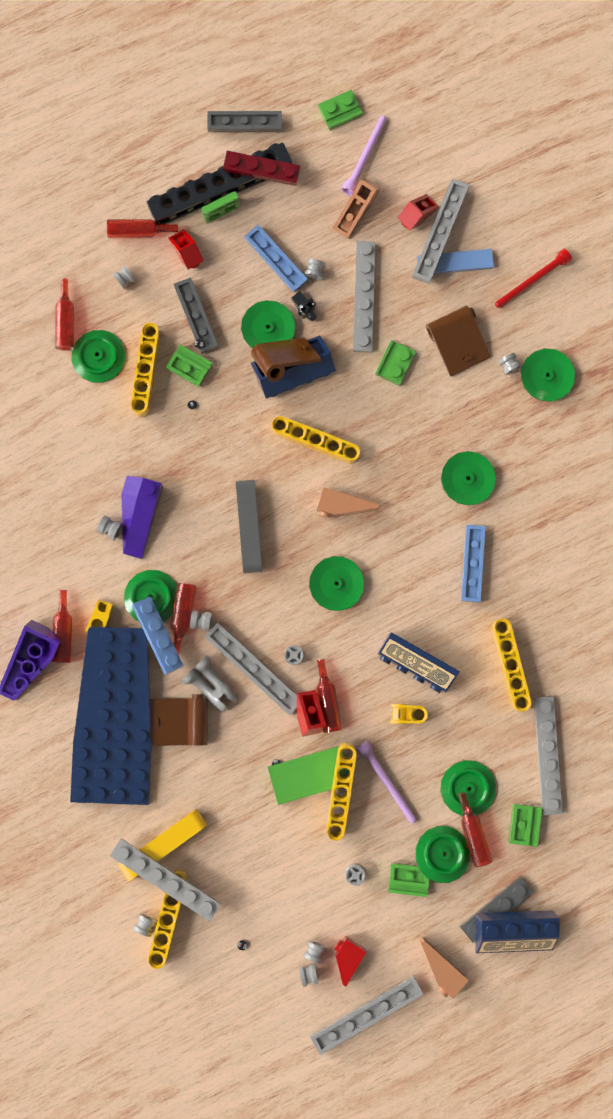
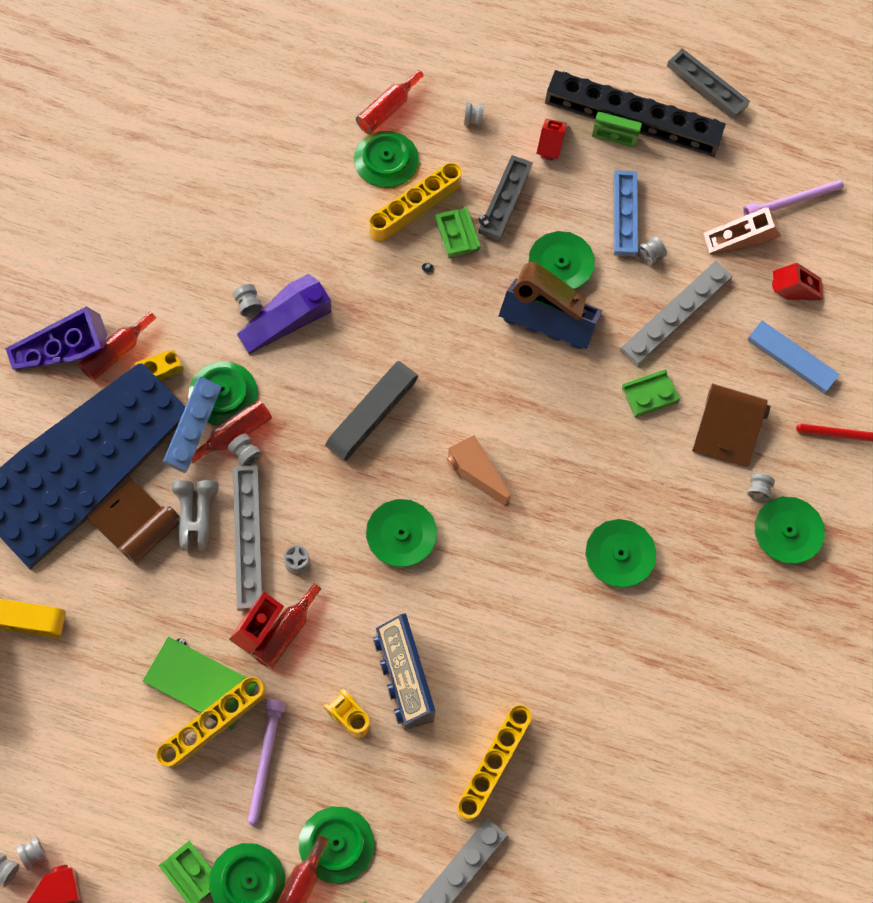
camera: 45 degrees right, 15 degrees down
(137, 228) = (525, 86): clear red piece -> none
(261, 168) = (685, 126): dark red plate -> none
(304, 306) = (612, 273): black piece -> none
(308, 433) = (513, 401): yellow beam -> none
(340, 109) = (806, 145): bright green plate -> none
(357, 877) = (141, 814): light grey wheel -> none
(440, 231) = (803, 317): light grey plate -> none
(473, 563) = (549, 634): medium blue plate -> none

